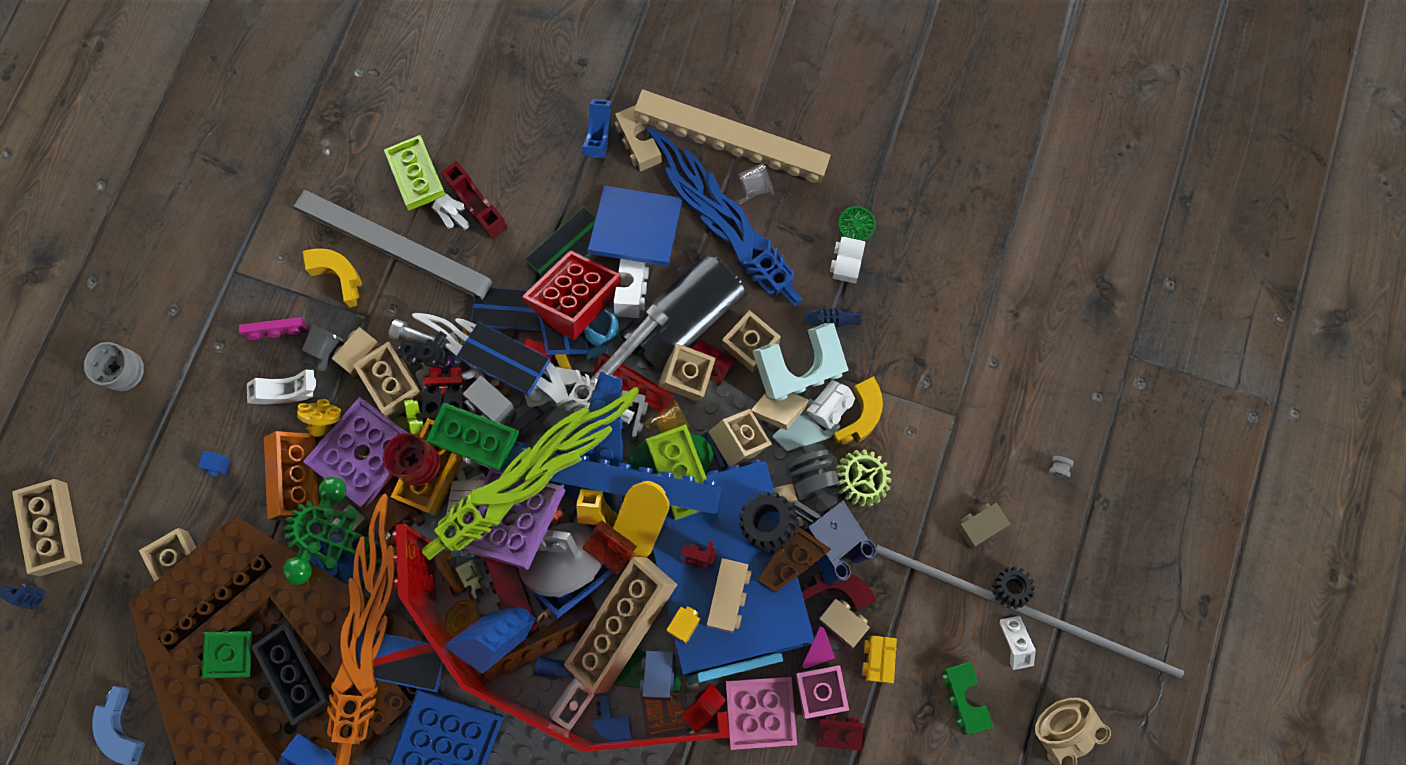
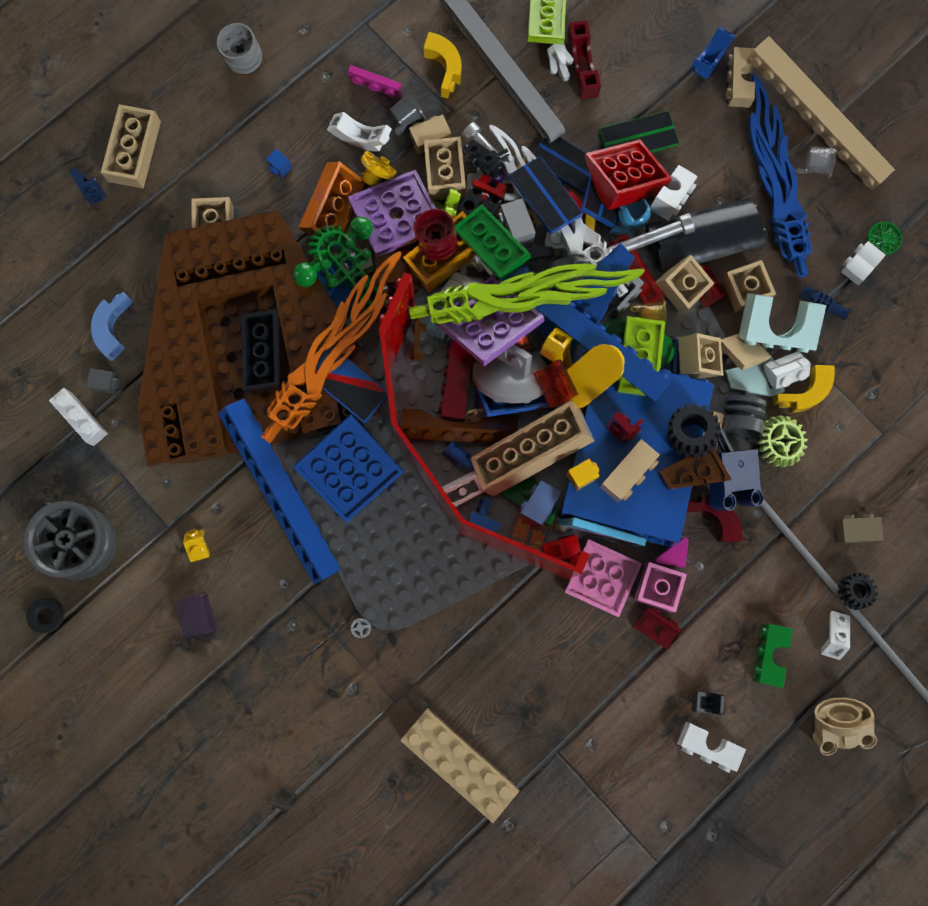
camera: 25 degrees right, 5 degrees up
(227, 654) = (220, 311): green plate -> none
(461, 617) = (411, 384): clear yellow hat -> none
(468, 576) = (430, 352): olive plate -> none
(492, 637) = (430, 404): blue slope -> none
(635, 226) = (703, 146): blue tile -> none
(844, 623) = (705, 545): tan brick -> none
(880, 659) = (719, 588): yellow brick -> none

